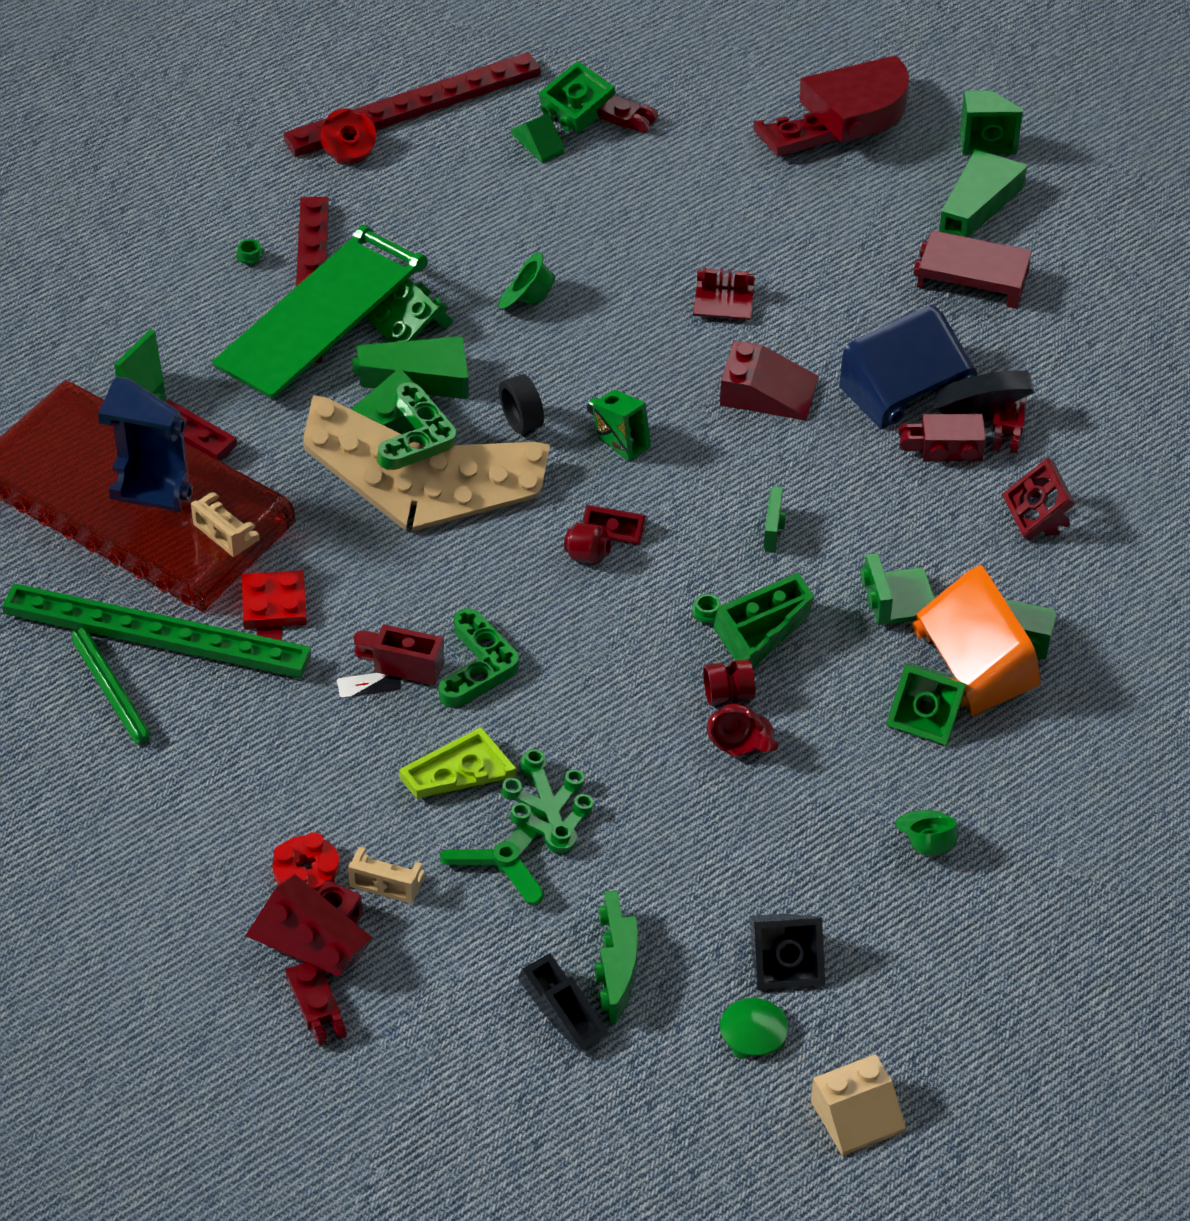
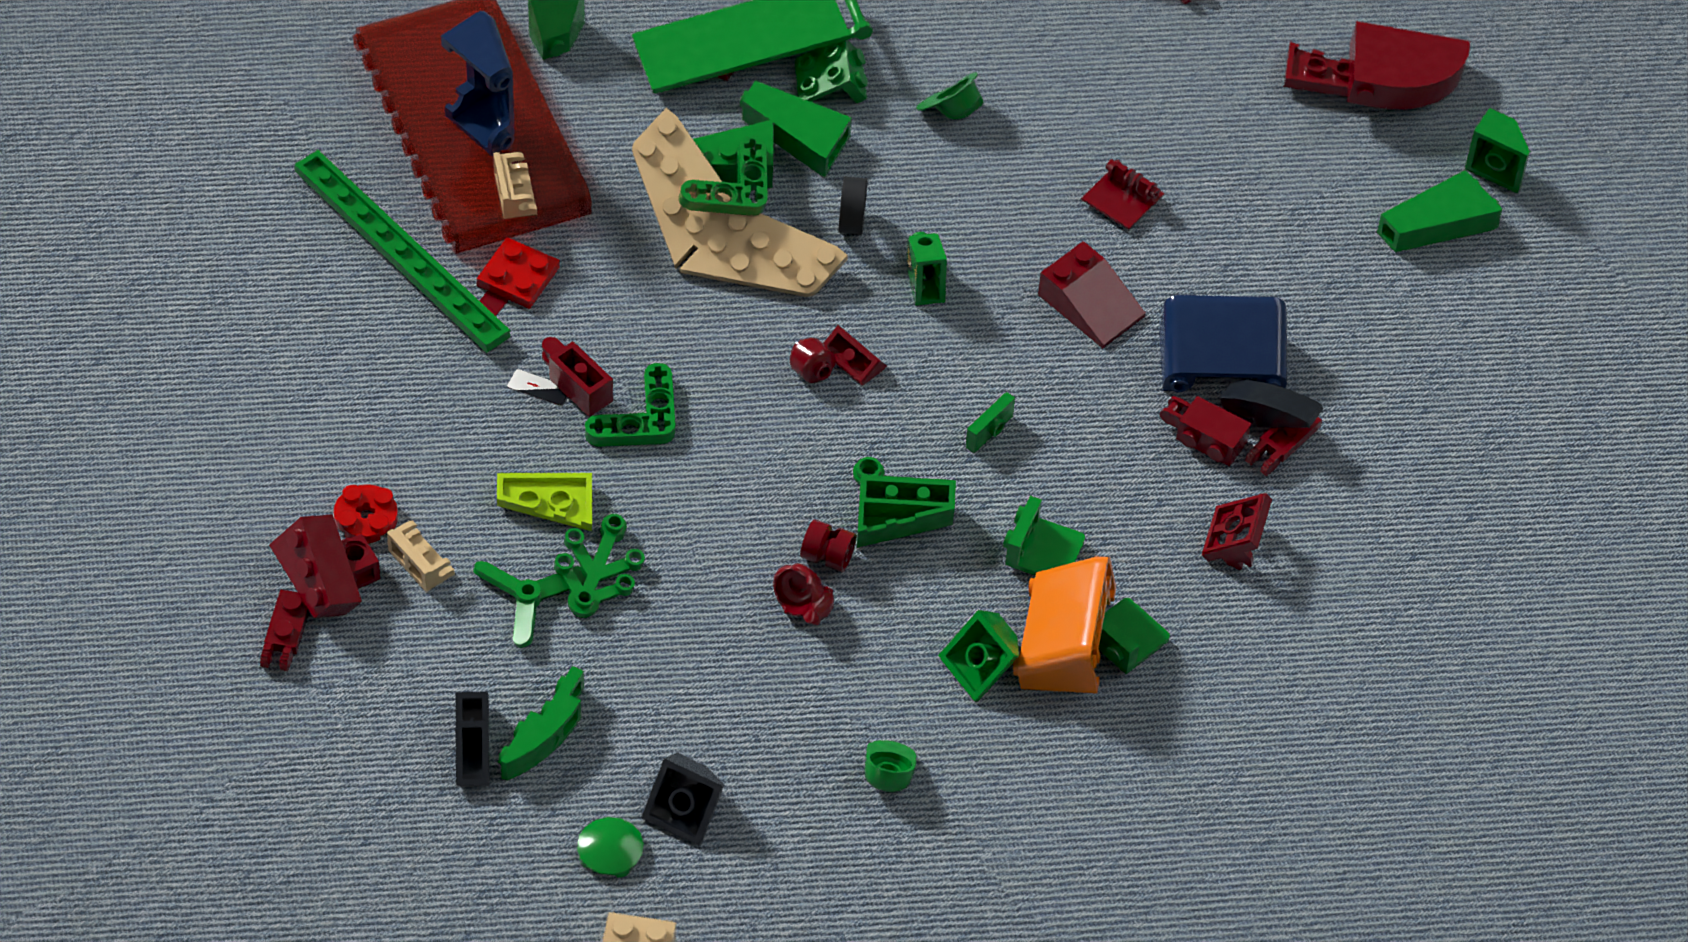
camera: 30 degrees right, 5 degrees up
(111, 686) = (330, 279): green axle -> none
(205, 435) = (566, 89): dark red plate -> none
(974, 264) = (1373, 282): panel -> none

